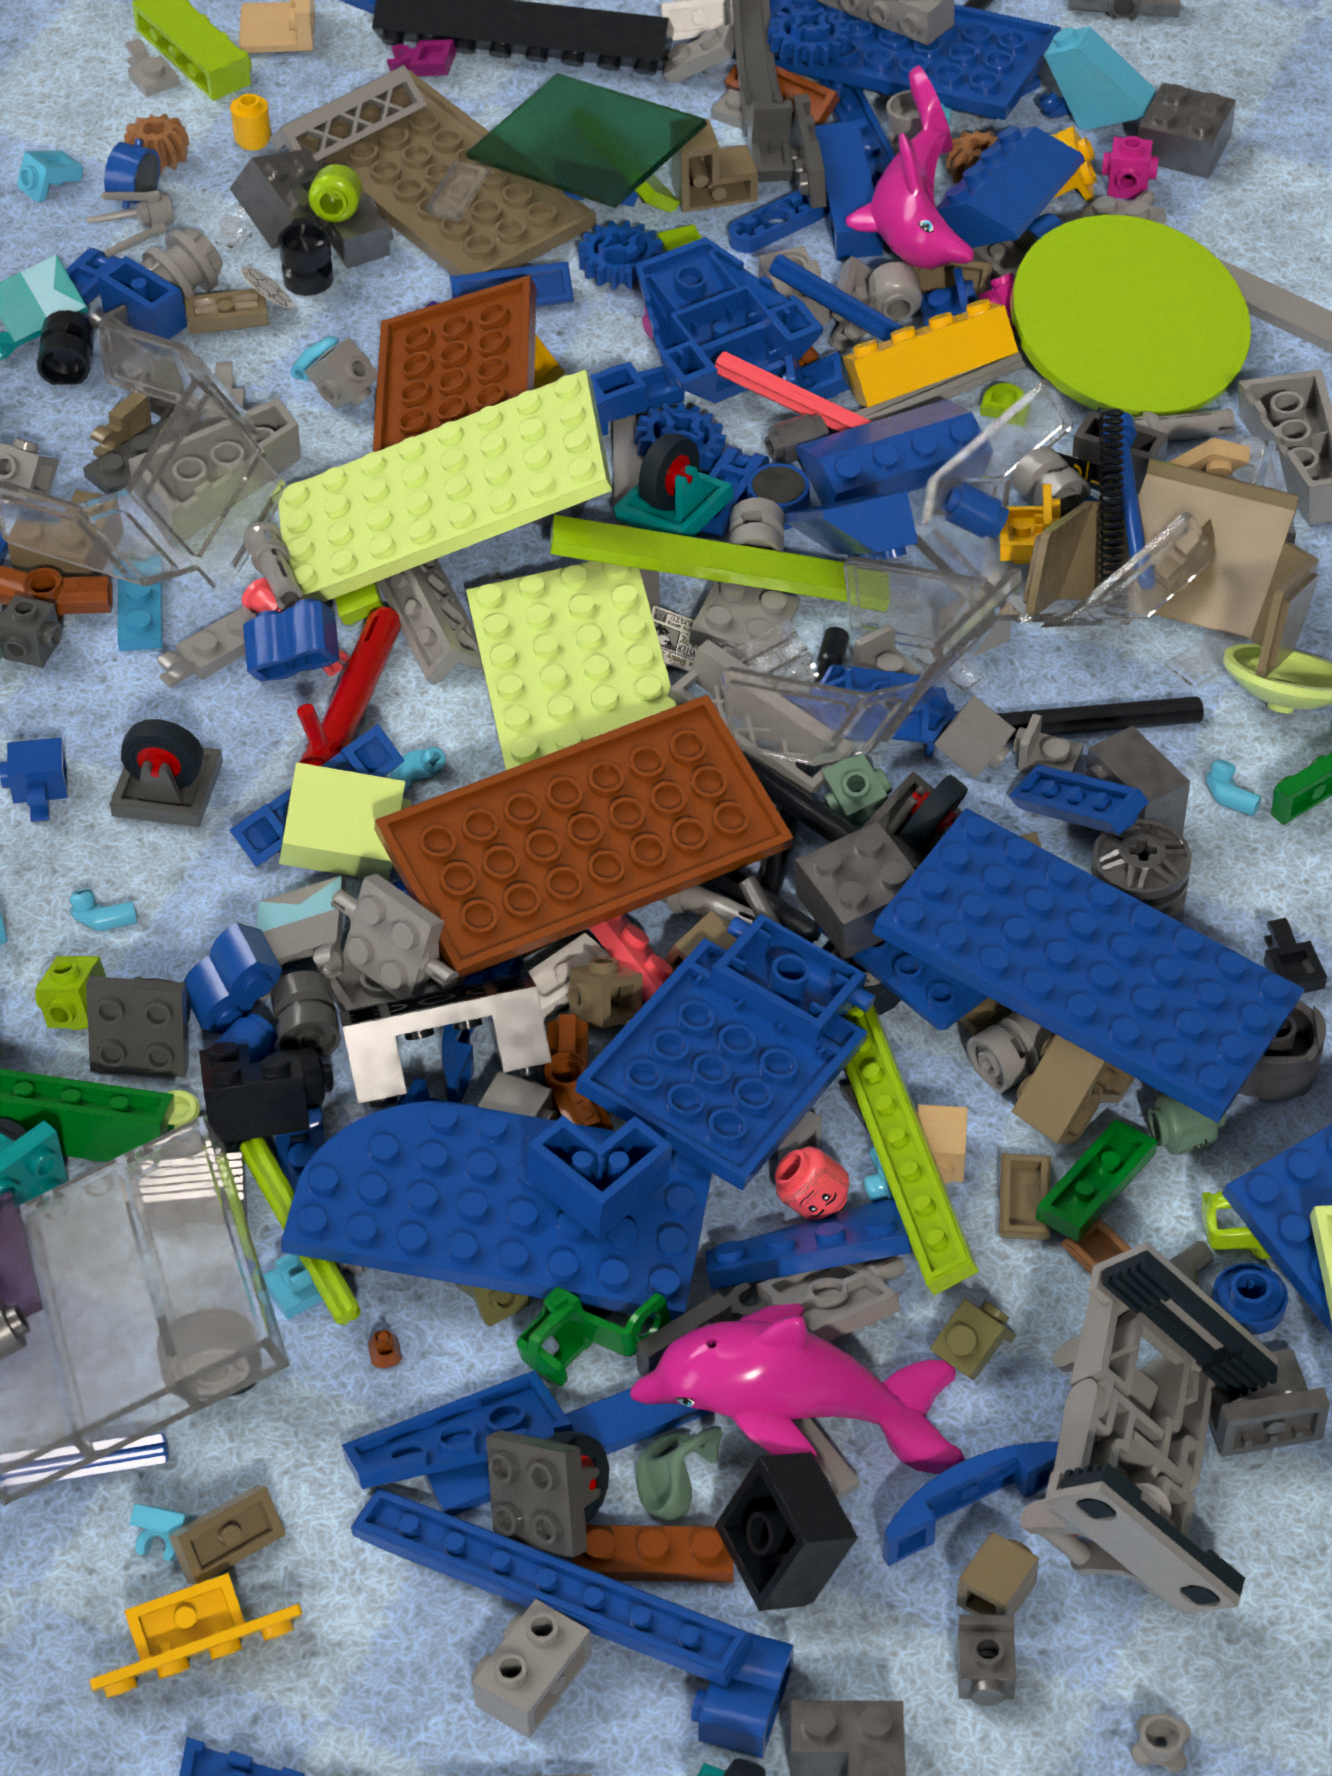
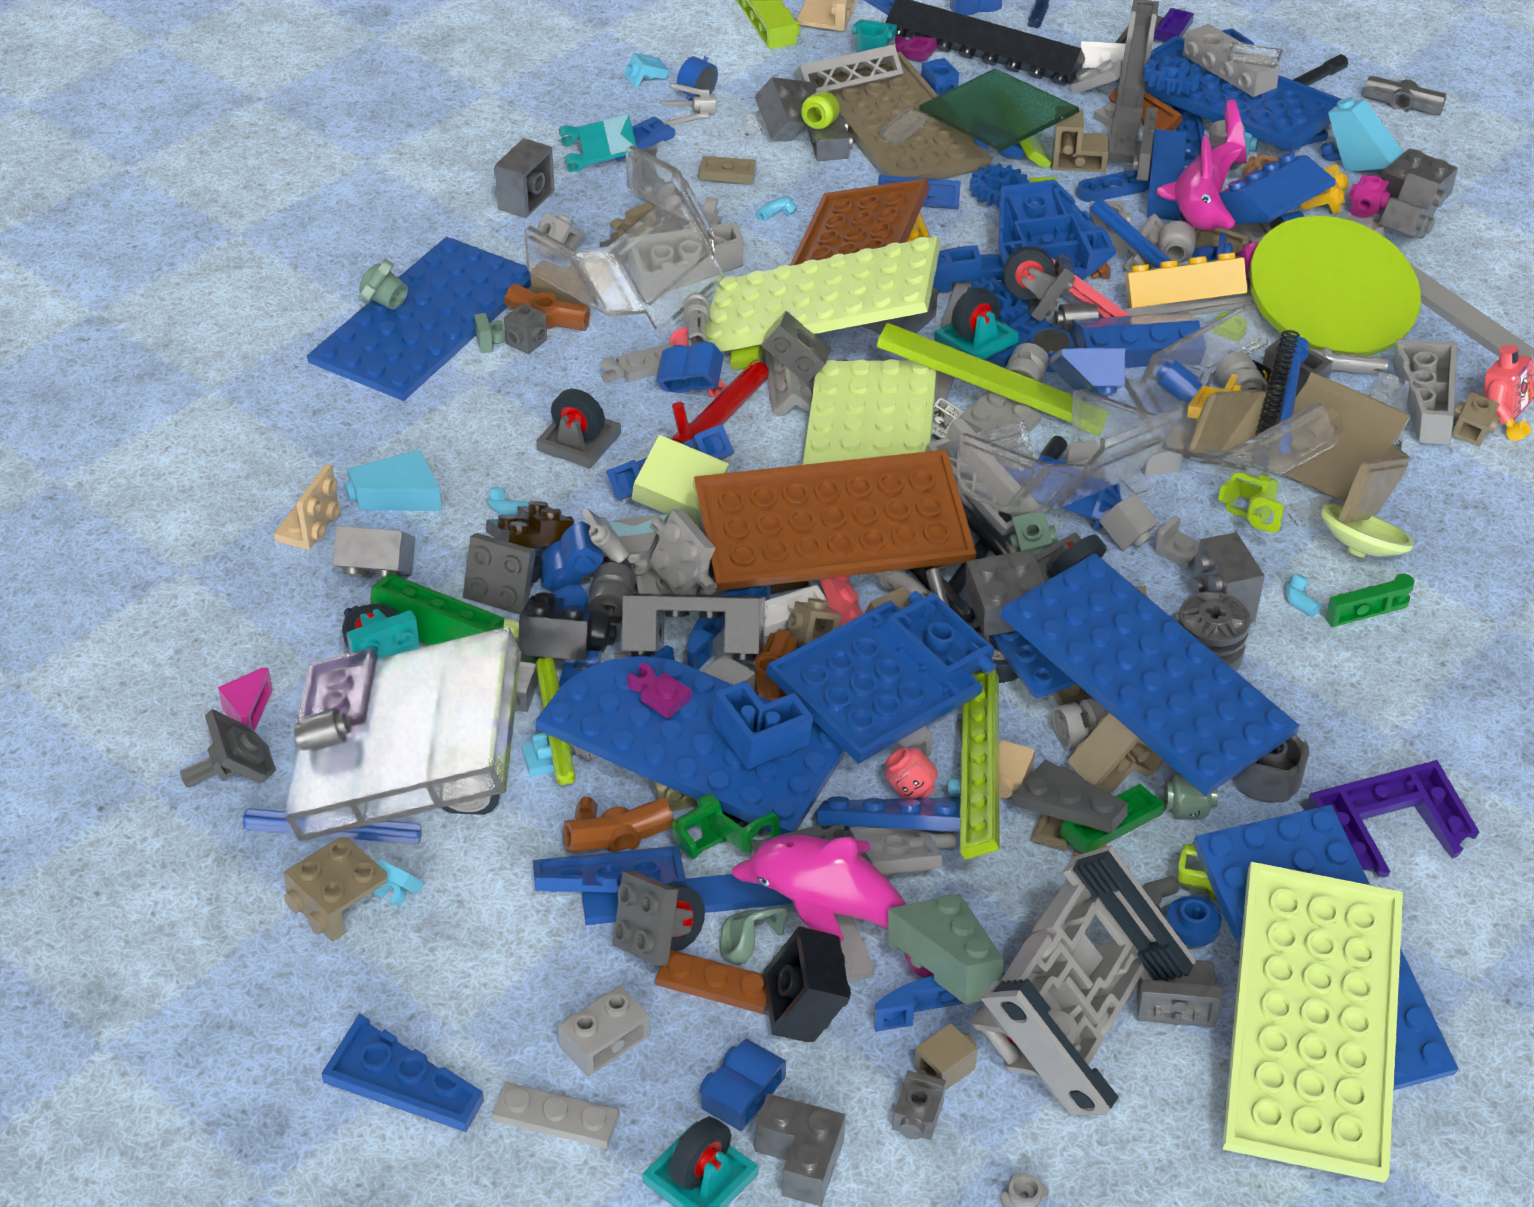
camera: 15 degrees right, 5 degrees down
(35, 774) = (497, 413): blue brick -> none
(63, 991) = (456, 542): lime brick -> none
(65, 348) = (611, 172): black wheel -> none
(78, 1559) = (331, 883): none -> dark tan bracket
(139, 616) = (602, 335): dark azure plate -> none
(148, 73) = (733, 25): light grey plate -> none
(150, 300) = (675, 149): blue brick -> none
(157, 942) = (532, 527): none -> dark brown plate
(163, 135) = (727, 62): medium nougat gear -> none
(186, 262) = (705, 138): light grey piece -> none
(187, 1625) = (387, 945): yellow bracket -> none
(226, 1534) = (435, 895): dark tan plate -> none
(250, 121) = (785, 61): yellow brick -> none
(267, 287) = (758, 160): white sticker -> none
(275, 939) = (605, 537): none -> light grey arm
(306, 258) = (789, 147): black wheel -> none
(342, 374) = (786, 219): light grey brick -> none
(362, 55) = (873, 34): none -> teal piece
(420, 766) = (747, 461): medium azure arm -> none
(434, 577) = (796, 347): none -> dark grey brick
(441, 1157) = (660, 693): none -> magenta plate
(443, 1365) = (618, 827): none -> dark orange piece
(480, 98) = (940, 75): none -> blue brick
(526, 1574) = (660, 997): blue tile -> none
(735, 396) = (1035, 277): none -> plate
(824, 377) = (1109, 284): blue bracket -> none
(961, 1423) = (948, 943): none -> sand green wedge
(972, 1337) = (989, 897): olive bracket -> none
(1035, 1166) = (1070, 798): none -> dark grey wing
(1079, 799) = (1185, 573): blue plate -> none
(1111, 716) = (1250, 535): black axle -> none
(1131, 648) = (1261, 499): none -> lime piece
(1198, 172) = (1415, 206): none -> flat silver brick
(1215, 457) = (1359, 378): tan plate -> none
(1291, 959) = (1306, 712): black plate -> none

